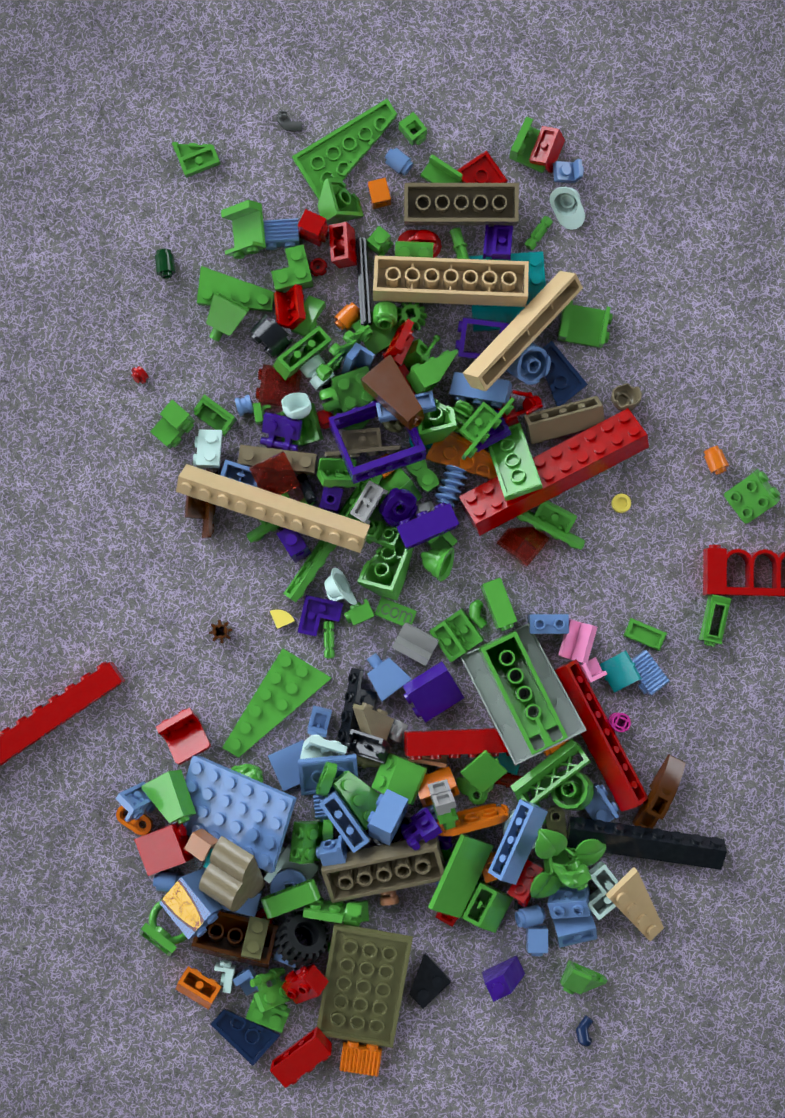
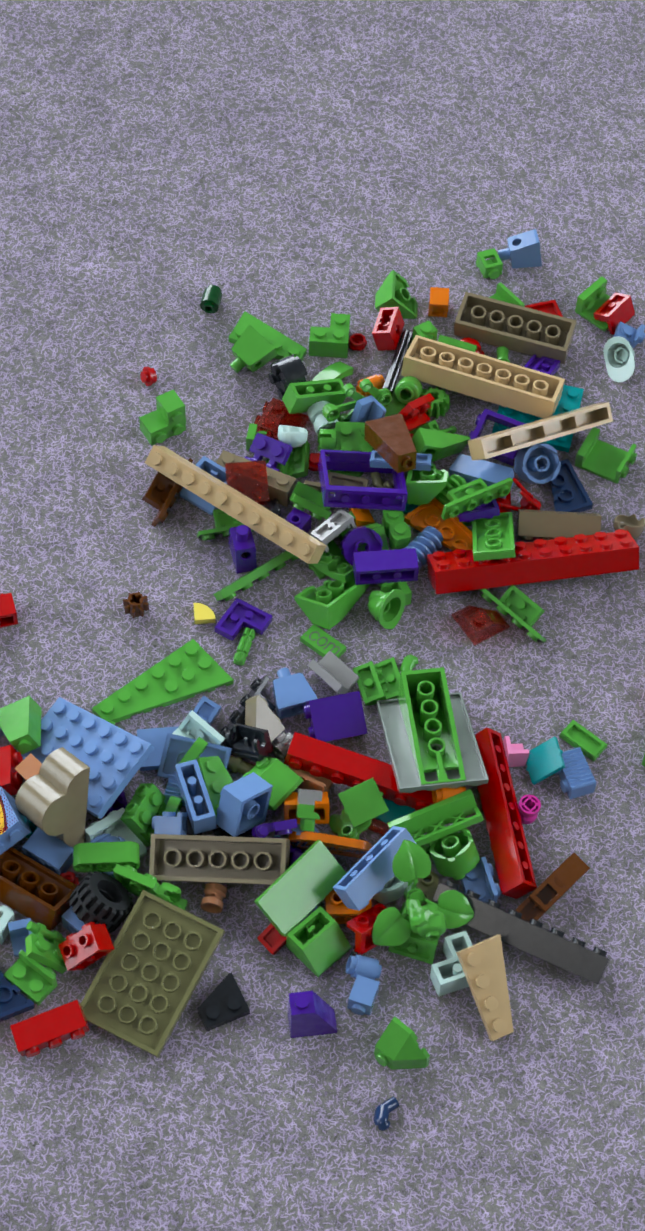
camera: 15 degrees right, 30 degrees down
(184, 735) = (57, 678): bracket -> none
(196, 157) = (275, 232): bright green wing -> none
(208, 449) = (191, 445): light aqua bracket -> none
(214, 415) = (208, 427): bright green hinge -> none
(244, 405) = (240, 427): medium blue wheel -> none
(247, 228) = (302, 291): bright green panel -> none
(255, 938) = (51, 884): olive plate -> none
(281, 233) = (325, 303): medium blue brick -> none
(286, 123) = (371, 231): dark grey arm -> none
(290, 307) = (318, 362): red bracket -> none
(313, 228) = (364, 306): red brick -> none
(338, 587) = (271, 599): light aqua piece -> none
(344, 147) = (420, 260): bright green wing -> none
(359, 613) = (286, 630): bright green brick -> none
(360, 1058) = (116, 1055): orange brick -> none
(398, 161) = (466, 283): medium blue brick -> none
(439, 104) = (522, 250): none -> medium blue torso
(498, 604) = (434, 648): bright green brick -> none
(538, 232) = (584, 374): bright green axle -> none
(549, 623) = (482, 690): medium blue bracket -> none
(569, 903) = (412, 964): medium blue bracket -> none
(575, 930) = (410, 1001): medium blue panel -> none
(578, 641) = (508, 718): bright pink panel -> none
(621, 503) = (595, 617): light yellow tile -> none

